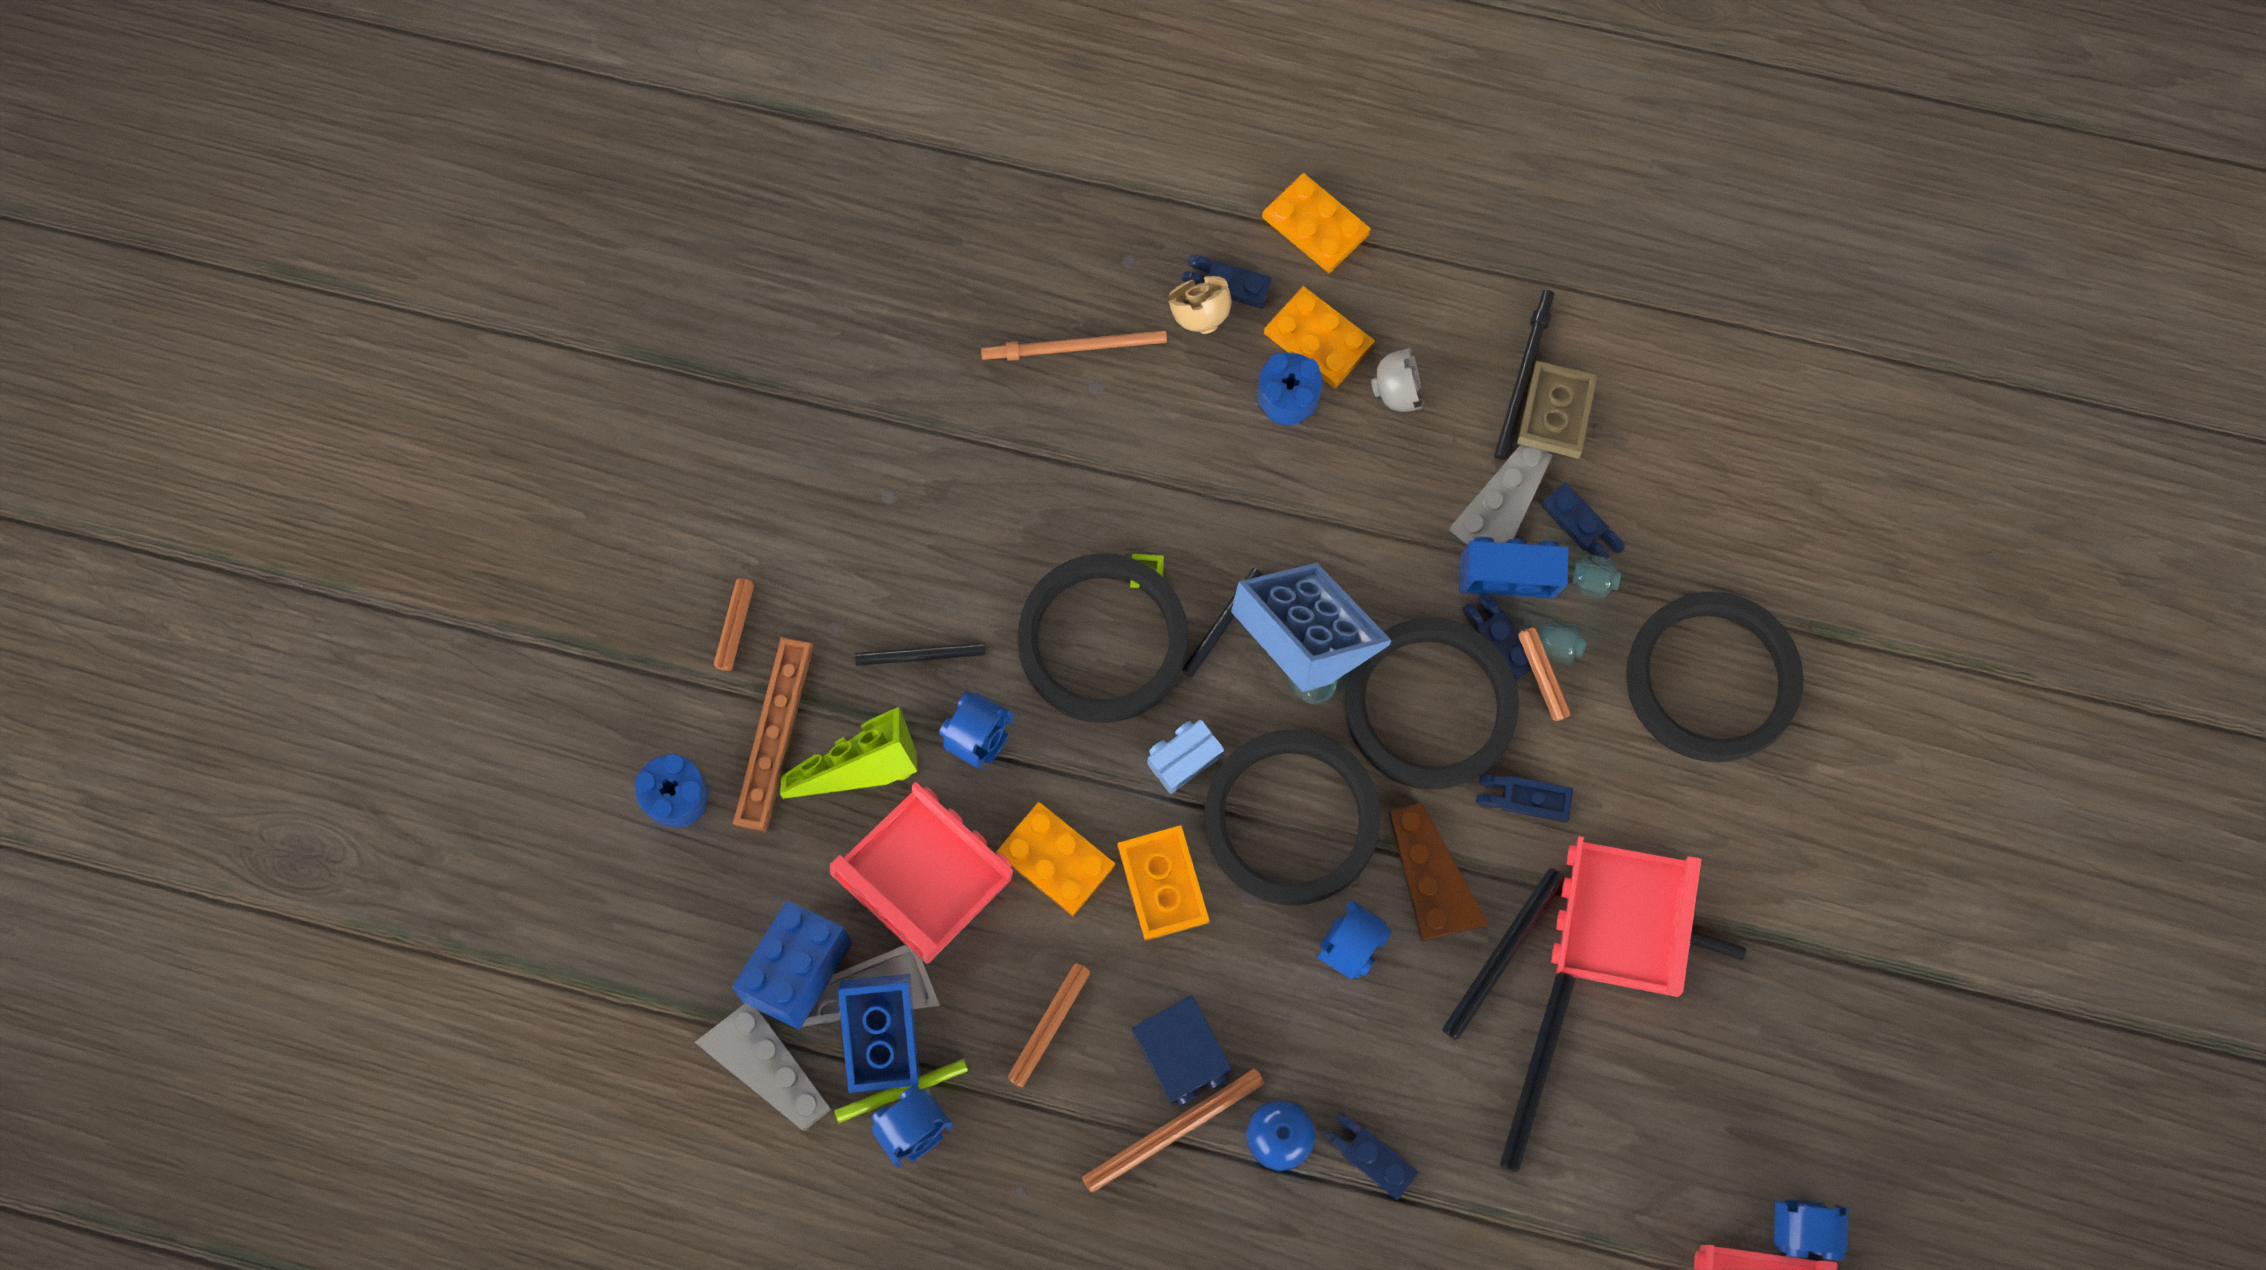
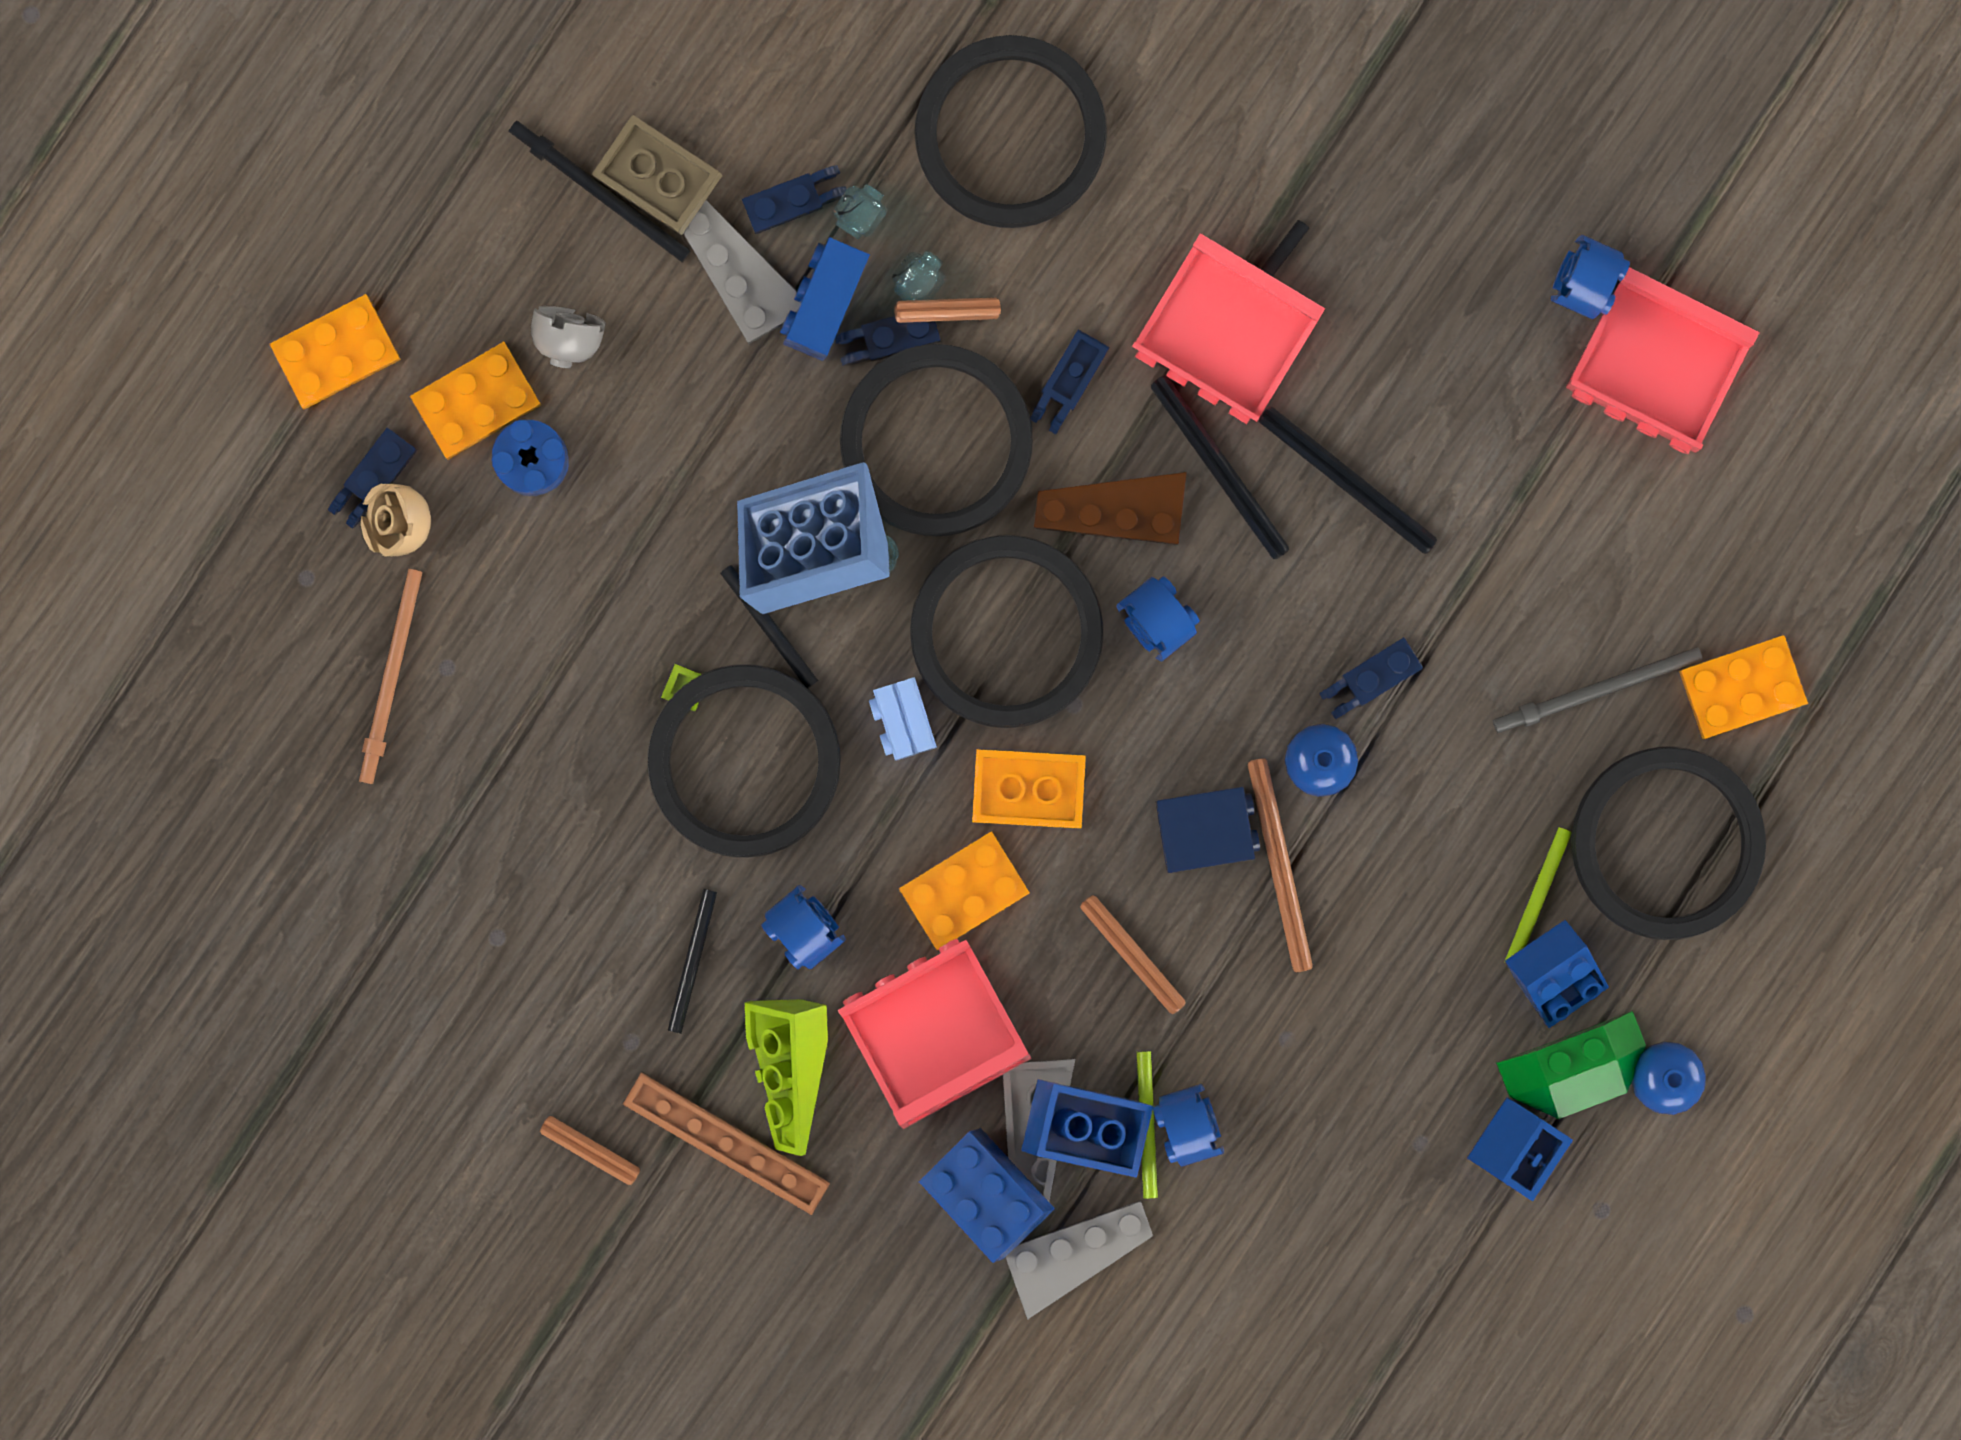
camera: 70 degrees left, 15 degrees up
(658, 778) = (746, 1286): blue brick -> none

